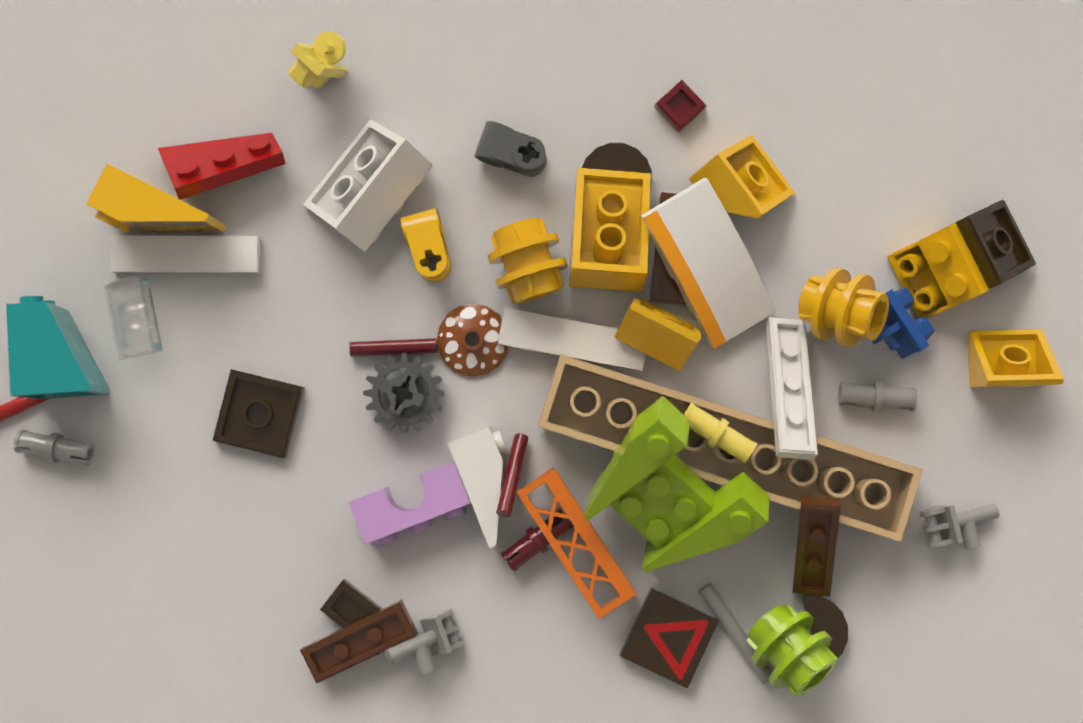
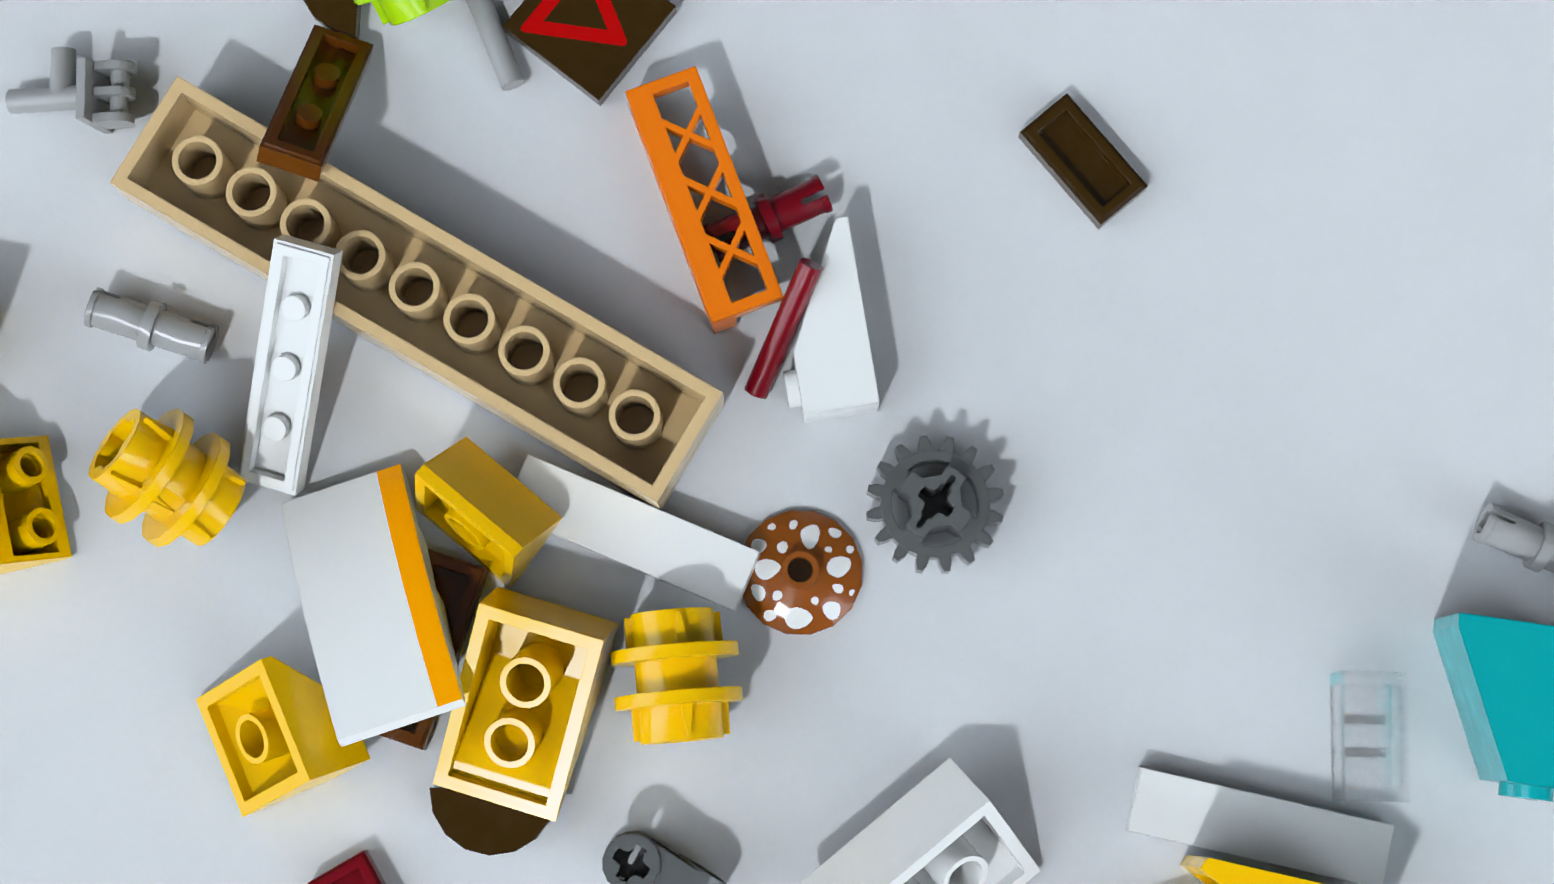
camera: 165 degrees left, 5 degrees down
(258, 413) = (1187, 529): dark brown tile -> none
(359, 641) = (1093, 119): reddish brown tile -> none
(381, 517) = (1013, 307): lavender arch -> none
(393, 347) = (937, 589): dark red piece -> none
(426, 239) = (841, 762): yellow piece -> none
(438, 636) = (963, 100): light grey arm -> none
(668, 499) = (536, 225): lime wedge -> none
(719, 433) = (427, 311): light yellow pin -> none
(900, 330) = (82, 422): blue hips -> none

